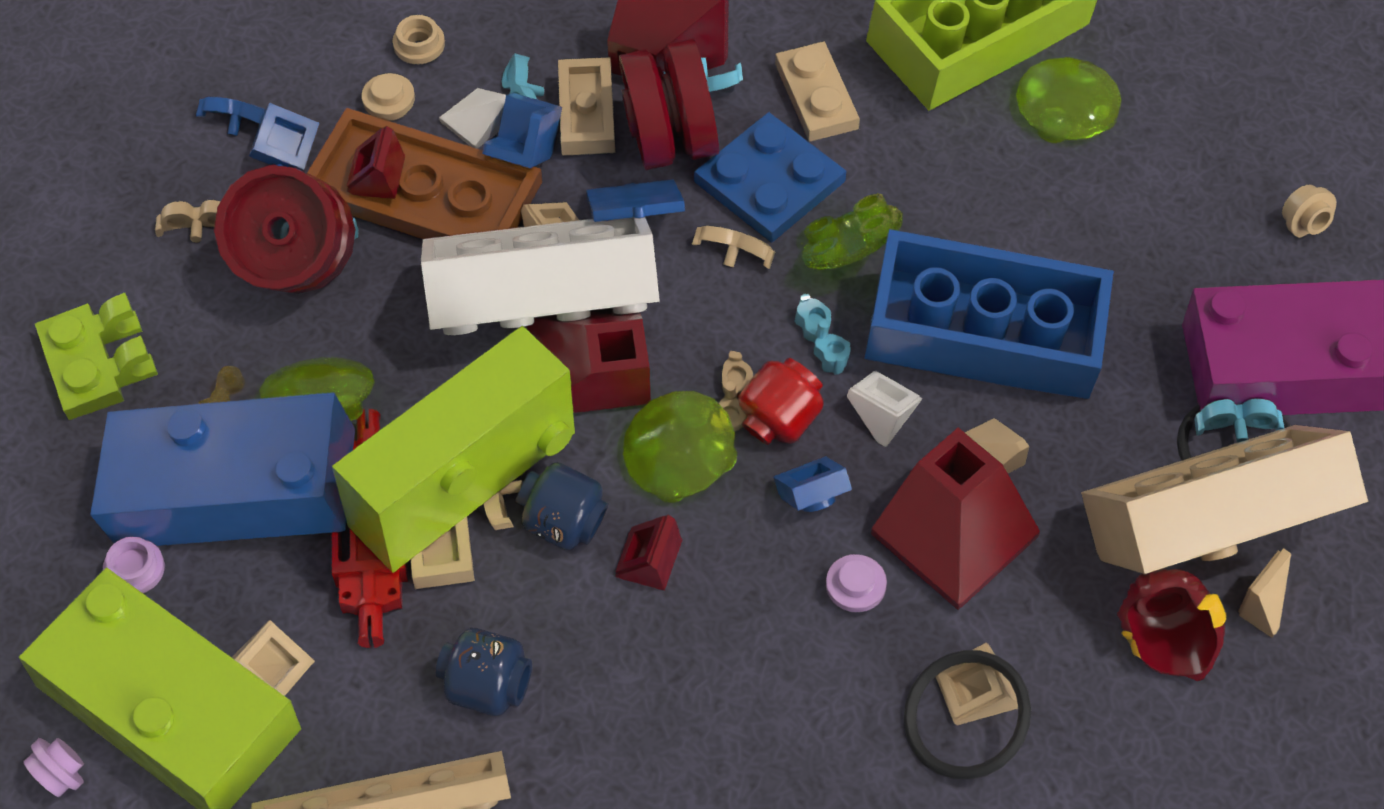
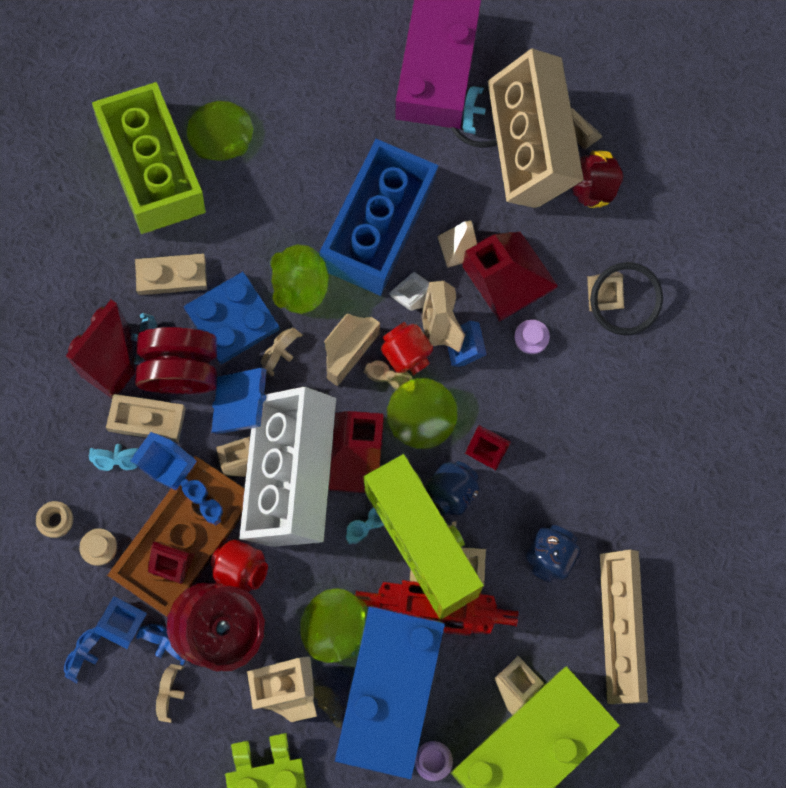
camera: 80 degrees left, 15 degrees up
(217, 340) = (284, 689): none -> tan slope
(385, 256) = (239, 565): none -> red head
(476, 117) = (130, 491): white slope -> none
(479, 179) = (197, 493): none -> blue piece
(758, 316) = (348, 344): none -> tan slope
(815, 322) = (370, 309): medium azure piece -> none
(845, 418) = (438, 316): none -> tan slope
(1309, 210) = (342, 27): tan plate -> none

